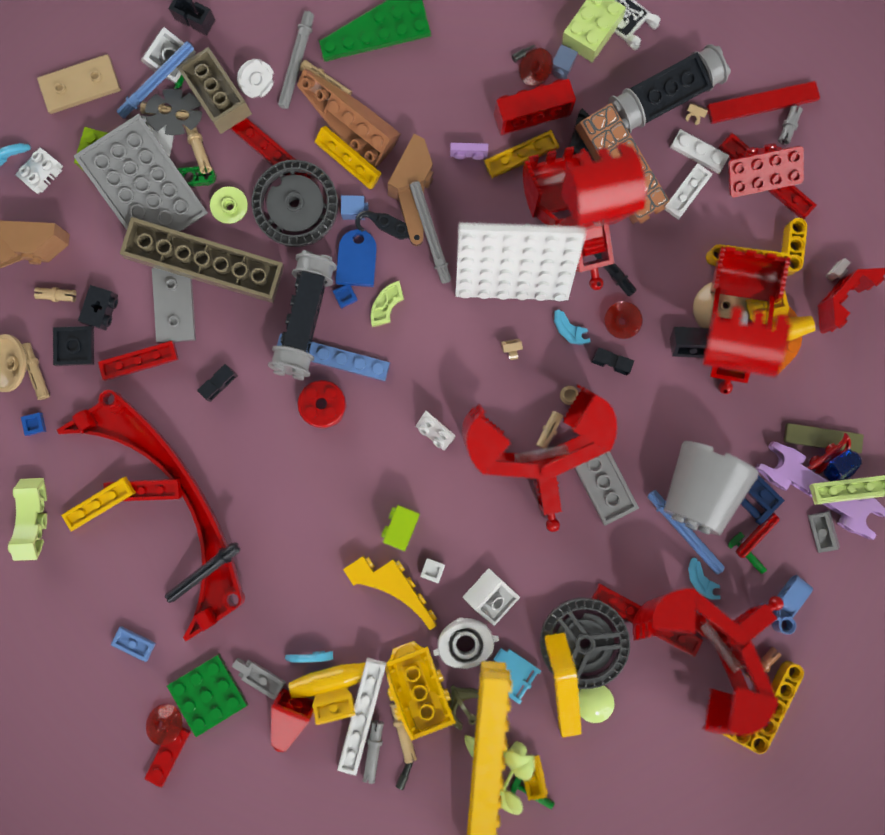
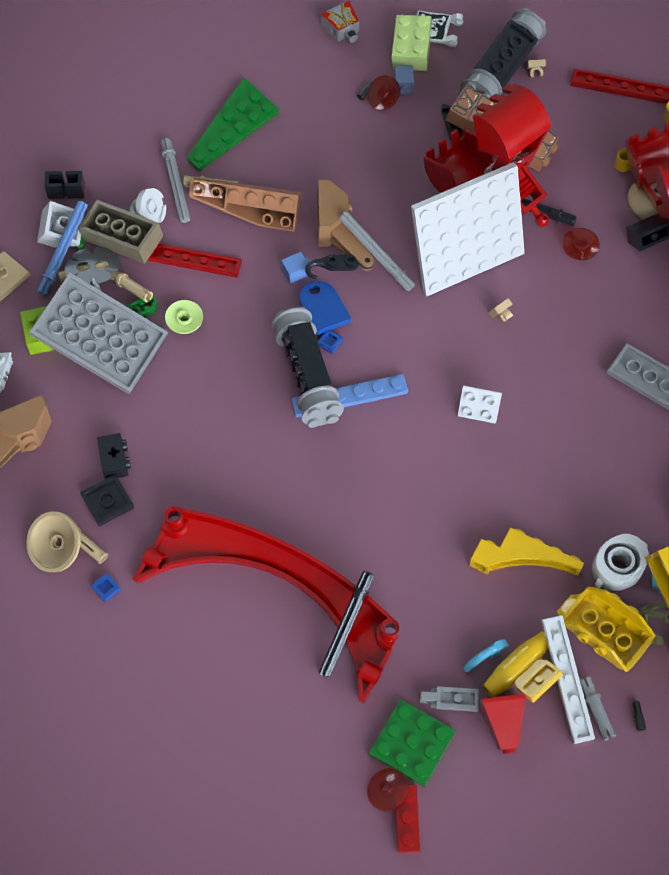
camera: 25 degrees left, 20 degrees down
(30, 519) = (154, 672): yellowish green brick -> none
(55, 294) = (64, 466): tan pin -> none
(98, 503) = (209, 622): yellow tile -> none
(133, 644) = (314, 732): medium blue plate -> none
(138, 360) = (175, 483): red plate -> none
(153, 489) = (244, 588): red plate -> none
(173, 307) = (179, 422): light grey plate -> none
(201, 260) = (190, 366): dark tan brick -> none
(217, 383) = (260, 464): black piece -> none
(295, 188) = (243, 269): dark grey piece -> none
(331, 414) = (360, 446): red plate -> none
(347, 157) = (266, 232): yellow plate -> none
(384, 304) = (368, 330): yellowish green tile -> none
(401, 527) = (500, 496): lime brick -> none
(405, 741) = (608, 671): tan pin -> none
(432, 570) = (550, 523): white plate -> none
(475, 150) = (367, 178): lavender plate -> none
(491, 597) = (615, 515): white slope -> none
(520, 153) = (410, 164): yellow tile -> none
(534, 106) = (402, 120): red brick -> none
(549, 430) = (576, 359): tan pin -> none
(568, 394) = (574, 324): tan plate -> none
(569, 331) = (542, 276): medium azure piece -> none
(588, 416) = (607, 324): red piece -> none
(619, 363) = (602, 278): black piece -> none
(688, 191) = (568, 125): white plate -> none
(699, 151) = (559, 93): white plate -> none
(763, 102) = (584, 36): red tile -> none
(765, 169) = (620, 79): bracket -> none
(790, 125) = (616, 42): light grey pin -> none

